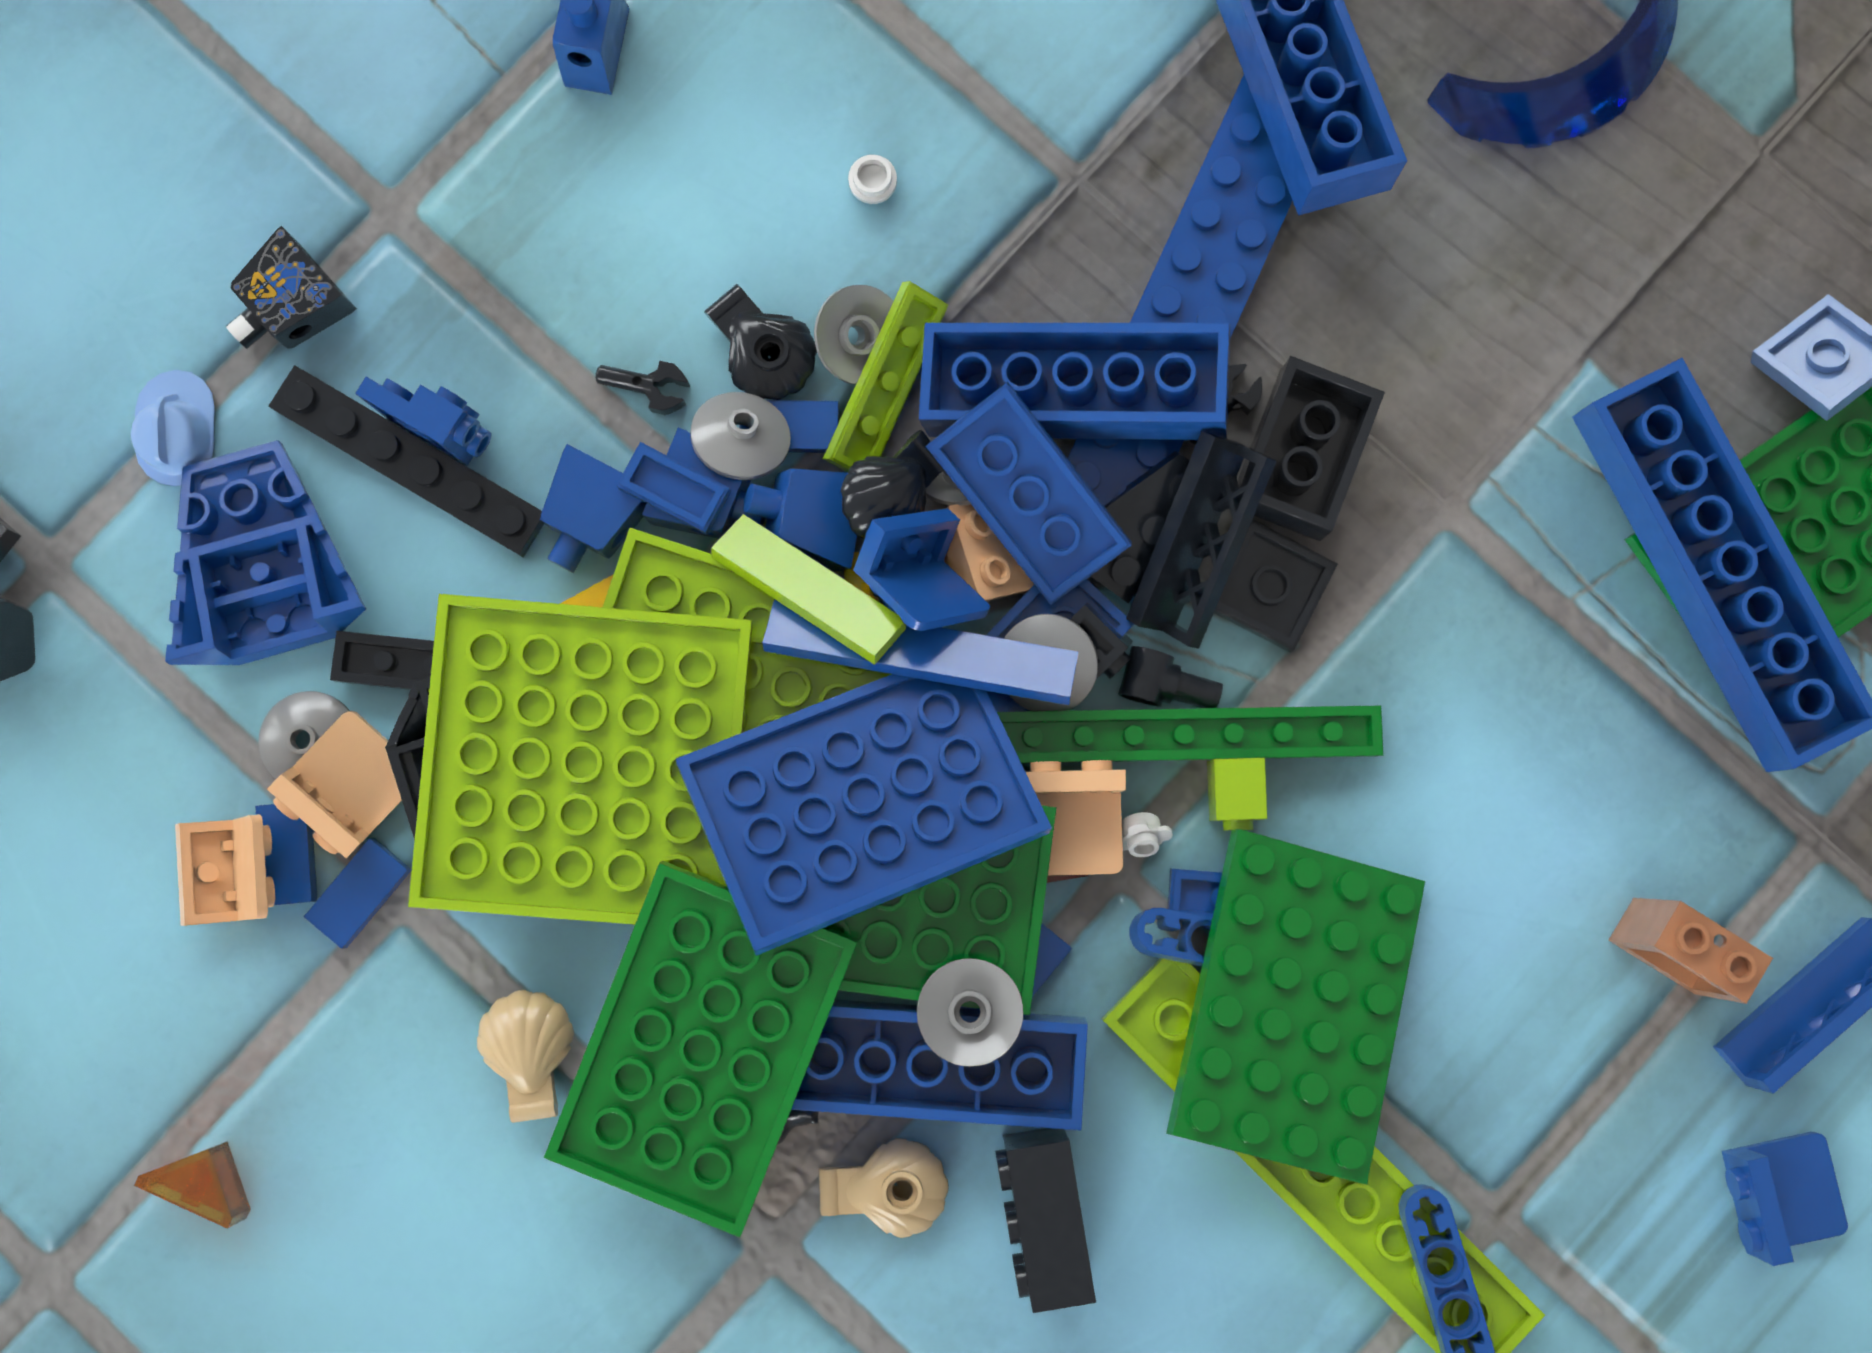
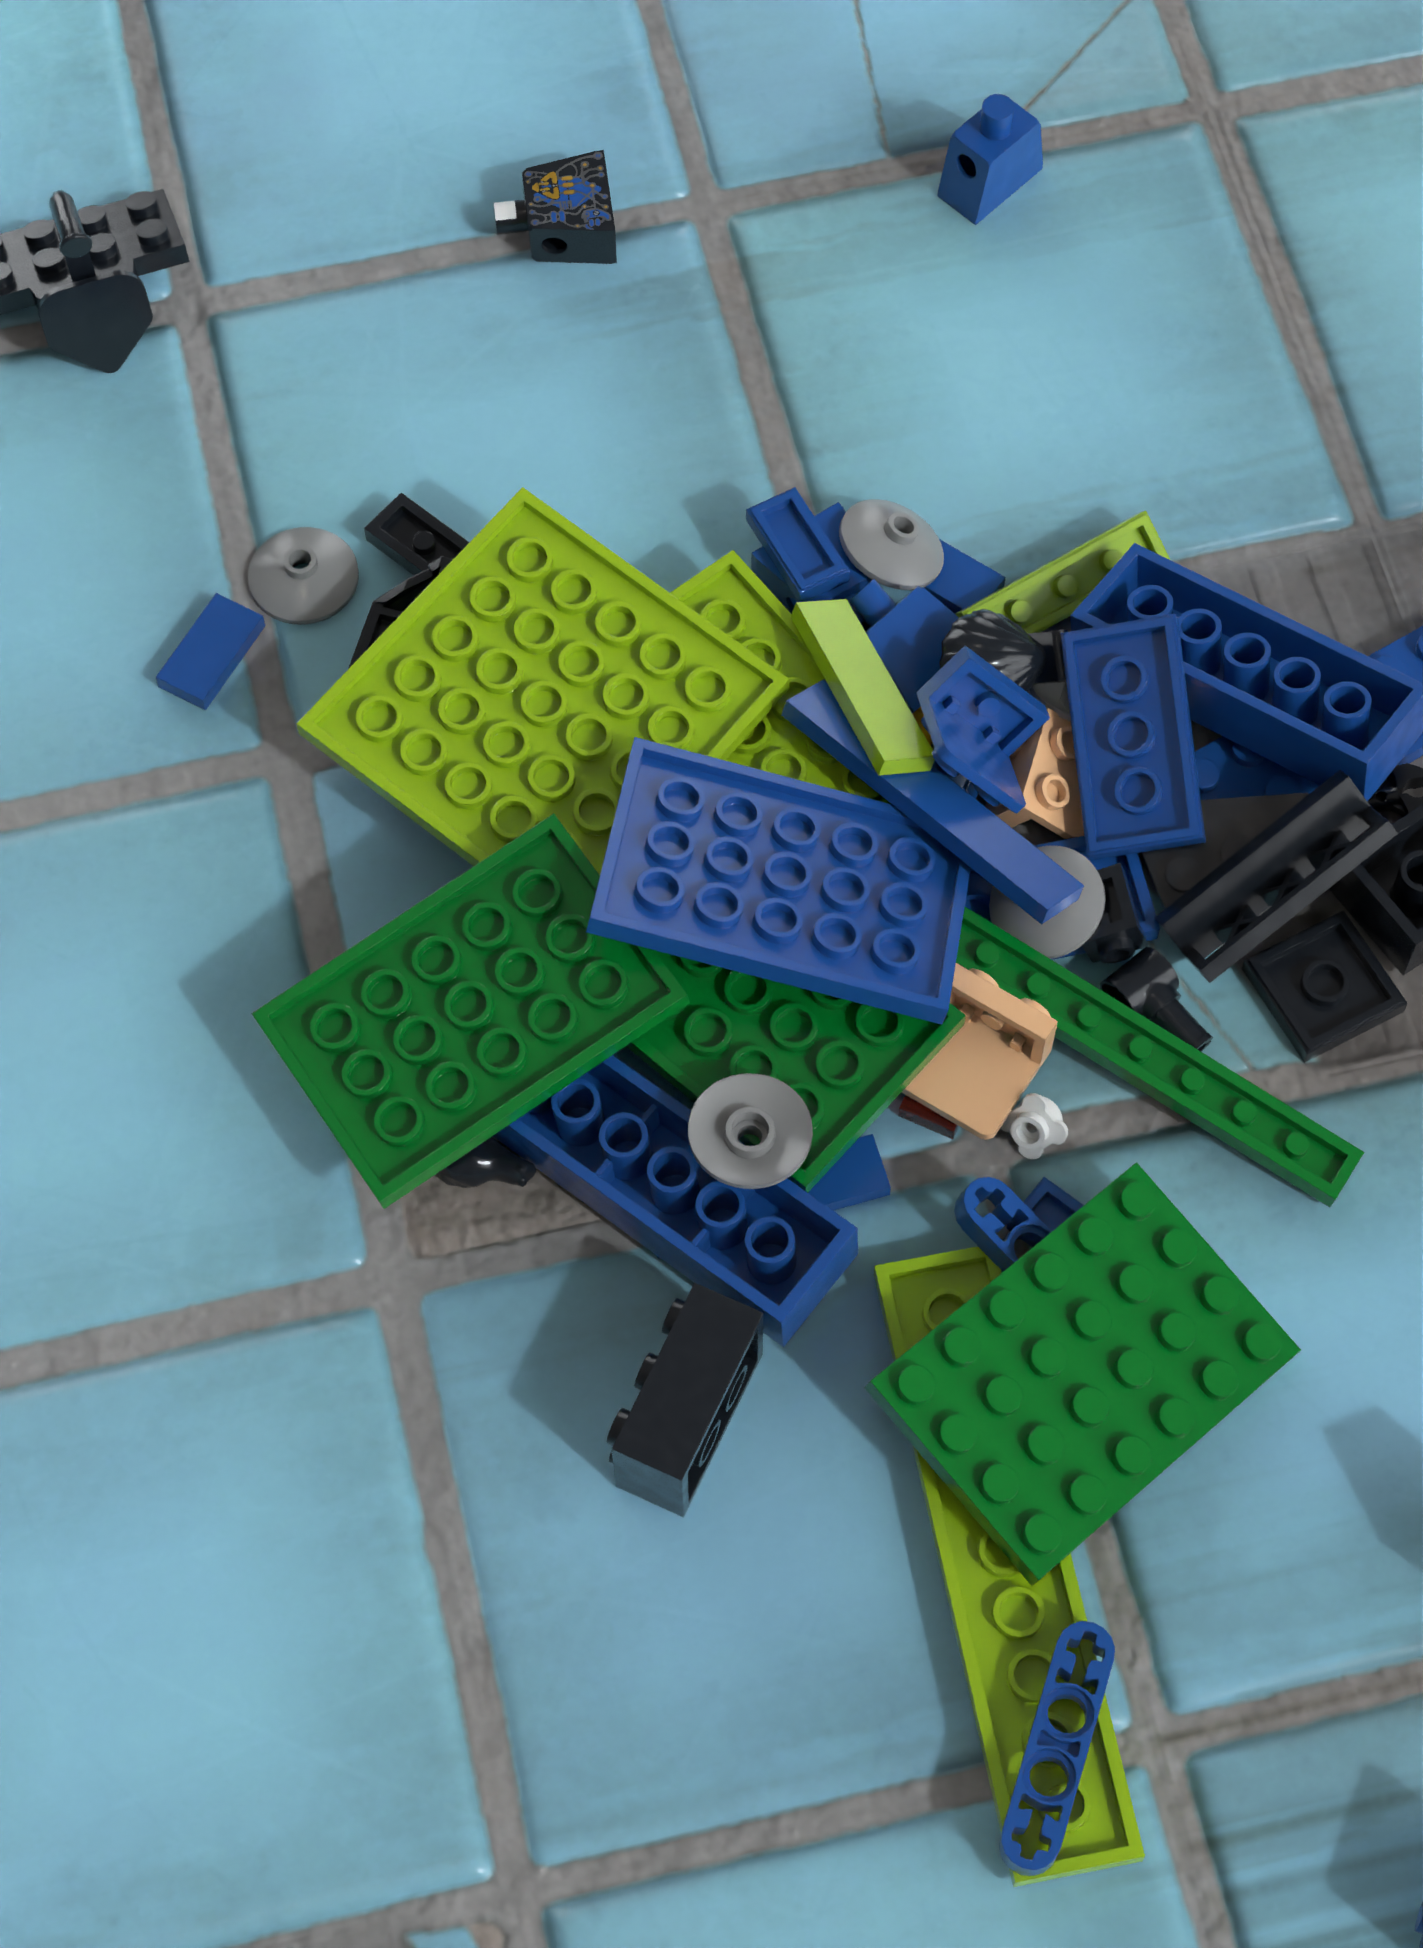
camera: 35 degrees right, 20 degrees down
(173, 425) = (383, 263): light blue piece -> none
(223, 870) = (147, 622): light nougat bracket -> none
(253, 563) = (369, 403): blue wedge -> none
(340, 785) = (307, 616): light nougat bracket -> none
(357, 893) = (246, 722): blue tile -> none
(408, 461) = (571, 406): black plate -> none
(435, 417) = (617, 366): blue plate -> none
(524, 1043) = (297, 934): tan animal -> none
(587, 509) = (700, 523): blue torso -> none
(647, 384) = (834, 487): black bar -> none
(760, 335) = (966, 497): black animal -> none
(849, 307) = (1065, 501): light grey dish -> none
(872, 179) = (1171, 417): white plate -> none
(872, 1192) = (554, 1293): tan animal -> none
(1237, 792) = (1161, 1138): lime brick -> none

